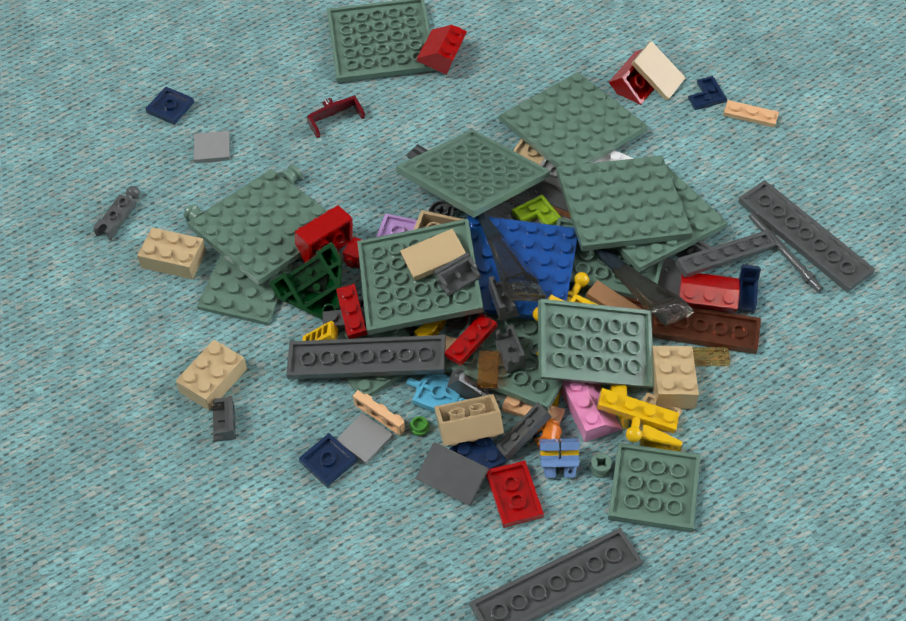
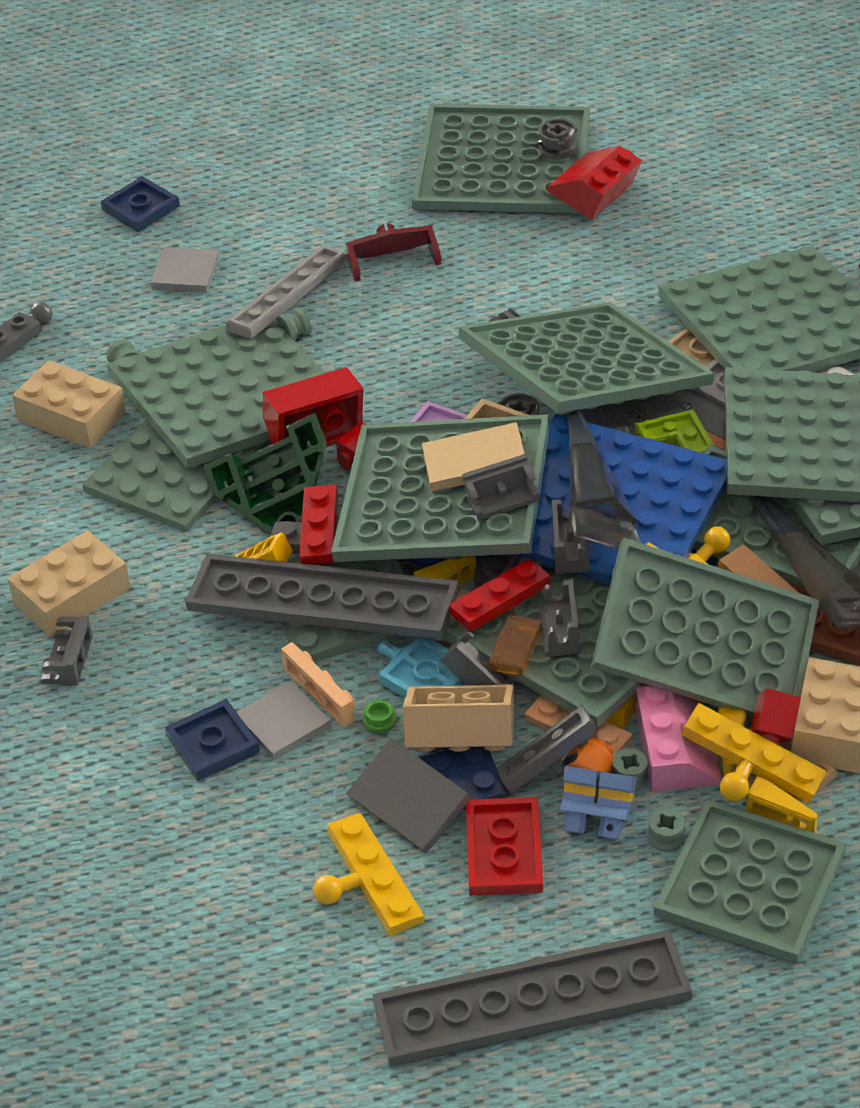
camera: 15 degrees right, 10 degrees down
(279, 154) = (285, 292): none -> light grey tile
(411, 22) = (558, 136): none -> dark grey wheel
(445, 526) = (372, 873): none -> yellow plate
(573, 426) = (635, 761): none -> sand green wheel
(644, 386) = (775, 715): none -> red brick

